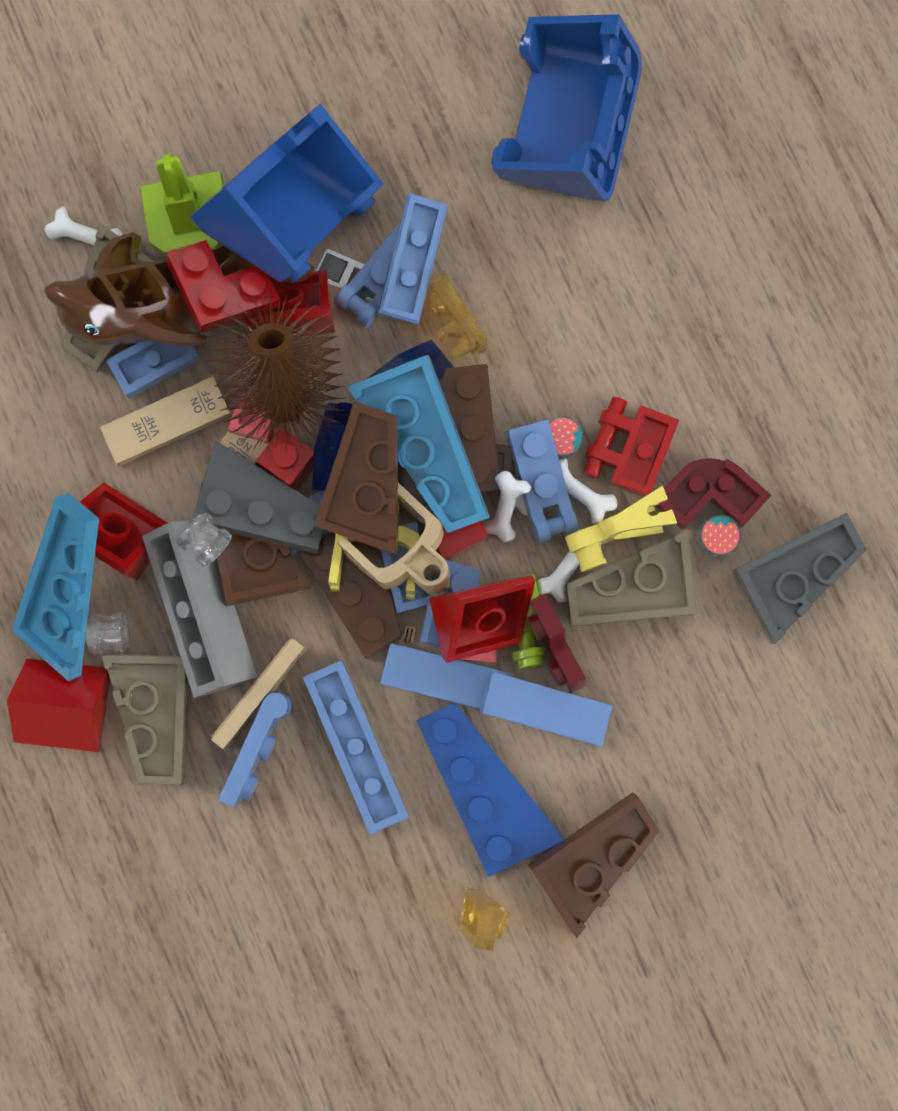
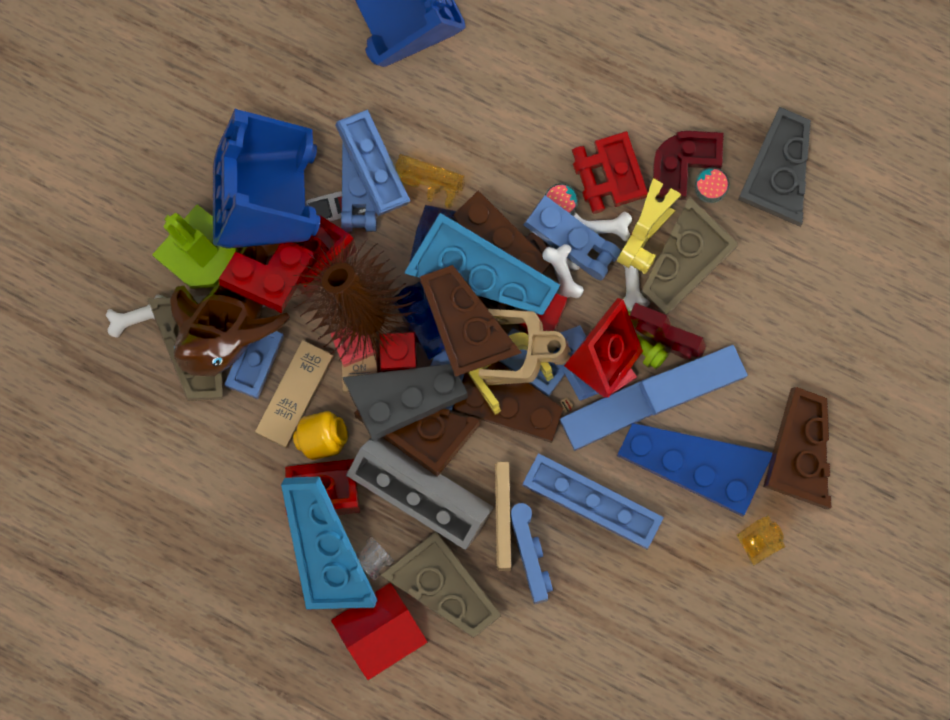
camera: 35 degrees left, 5 degrees down
(154, 479) = (320, 435): none -> yellow head
(204, 539) = (391, 441): clear wheel -> none

